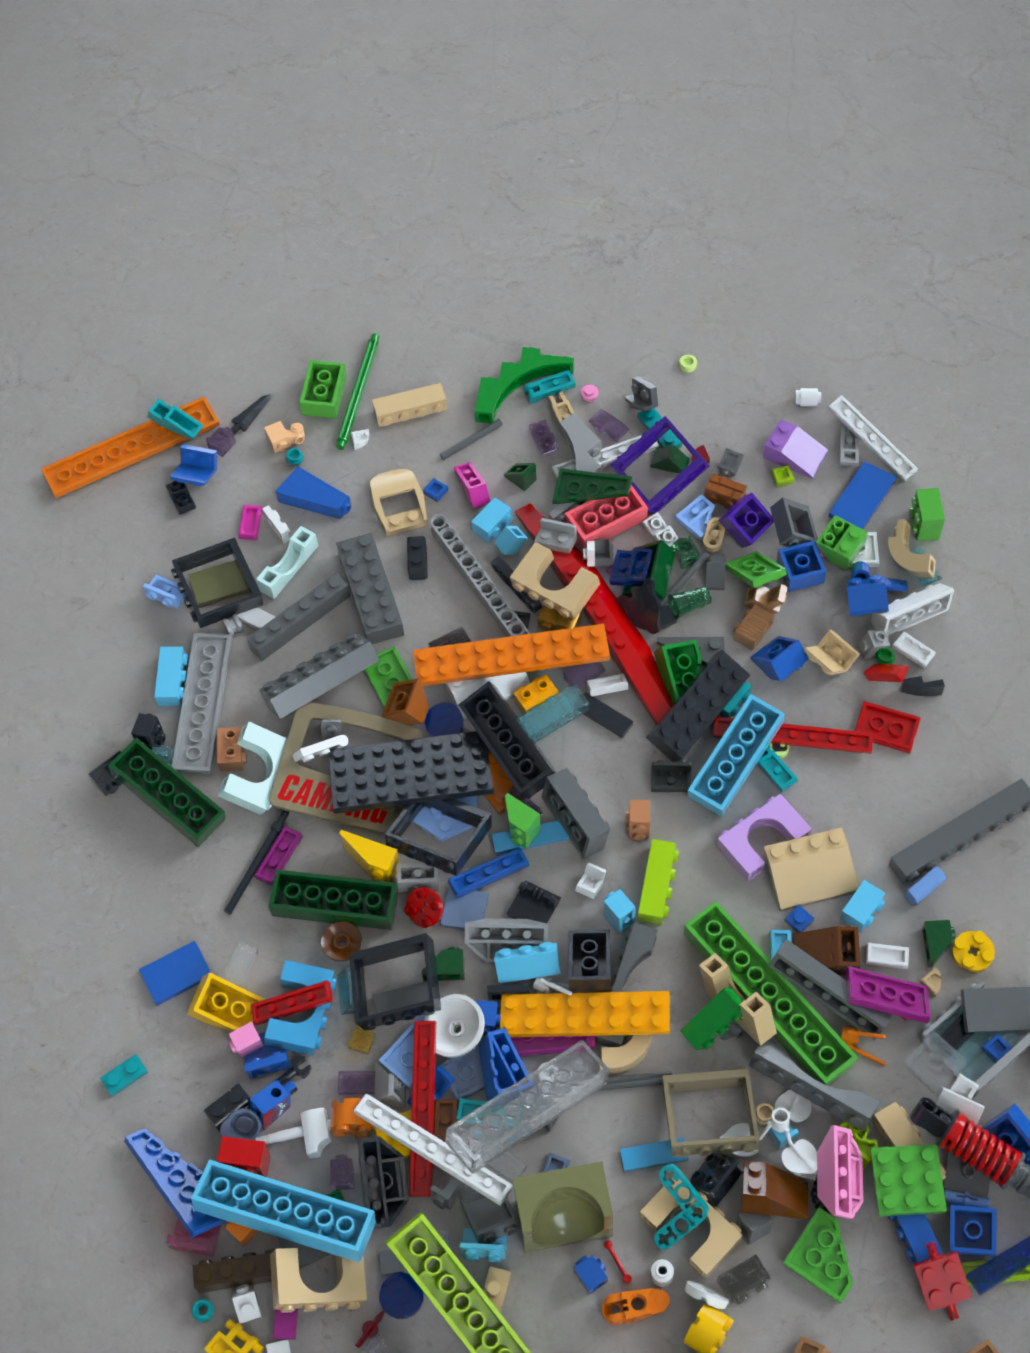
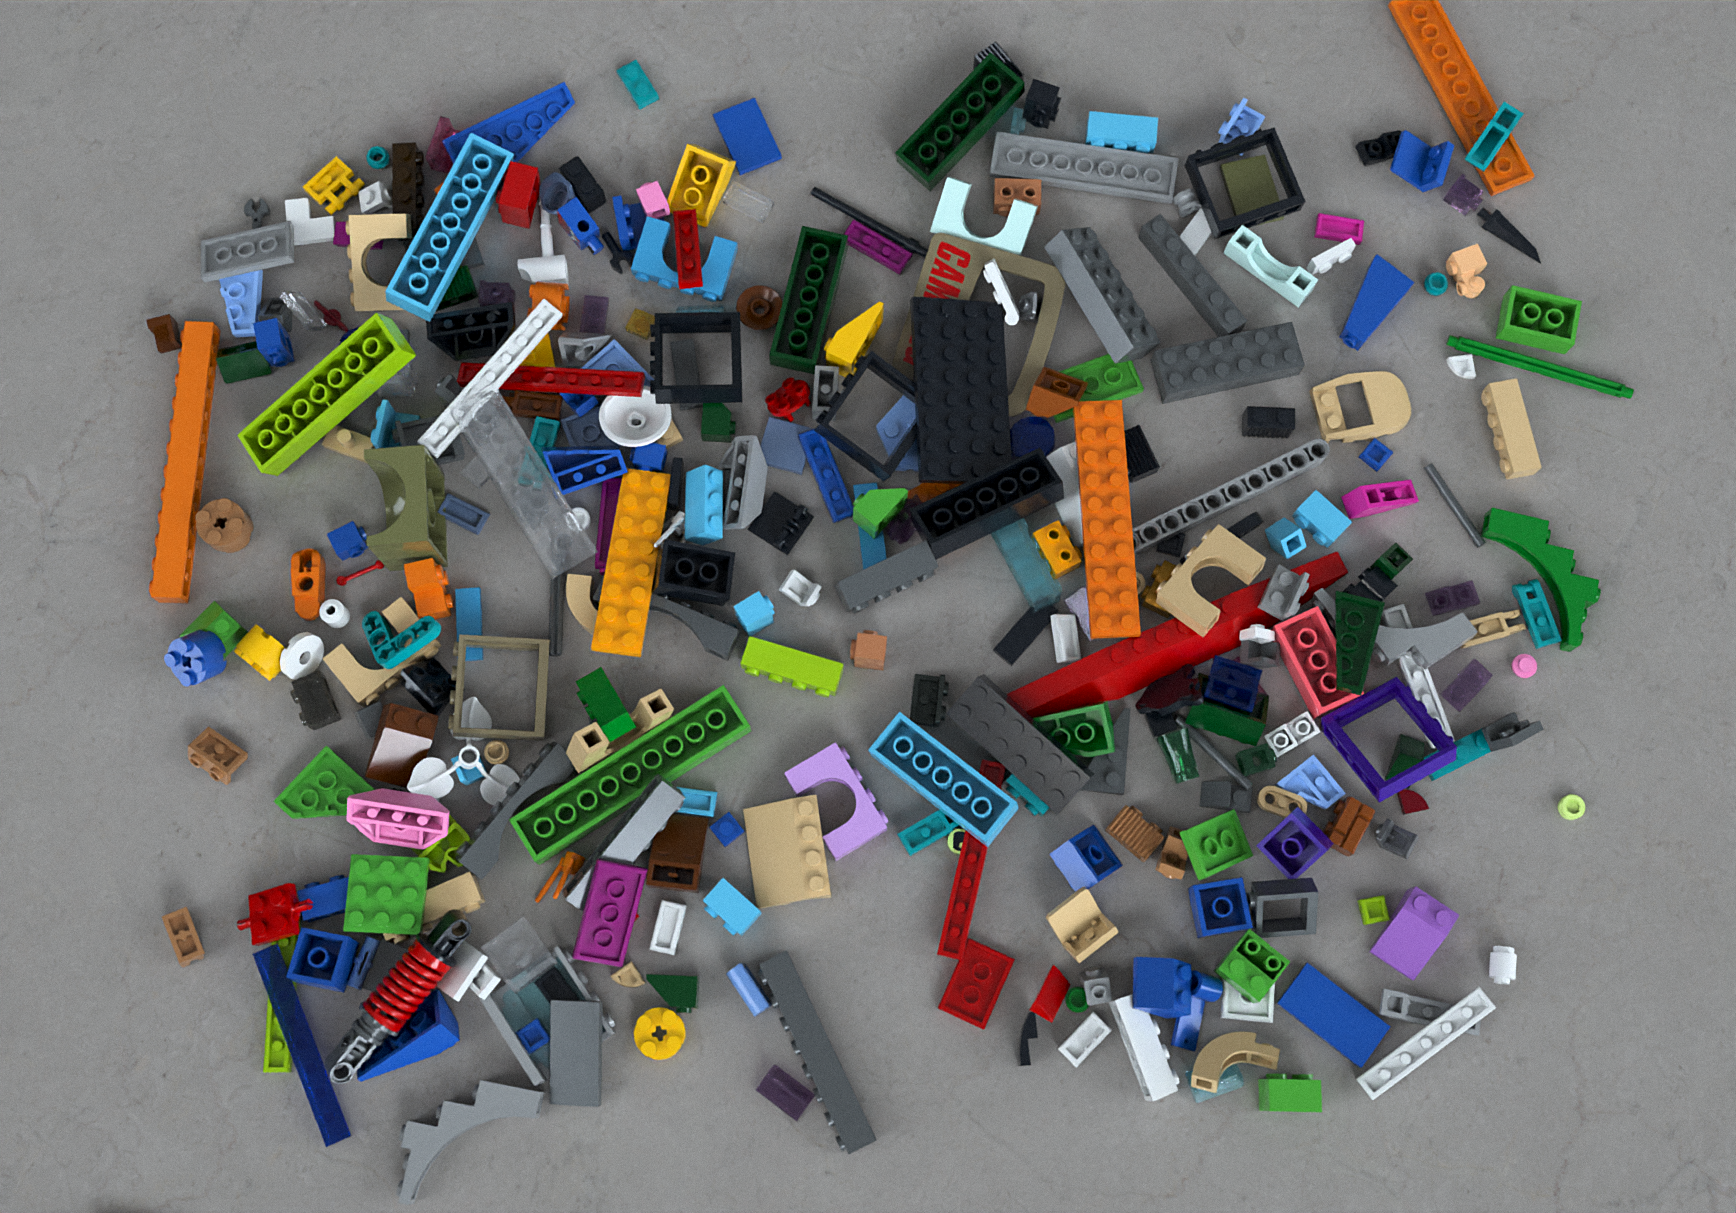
camera: 90 degrees right, 15 degrees up
(542, 485) = (1373, 585): none -> black brick
(630, 1190) = (428, 586): none -> orange brick
(998, 853) = (785, 1092): none -> clear purple slope

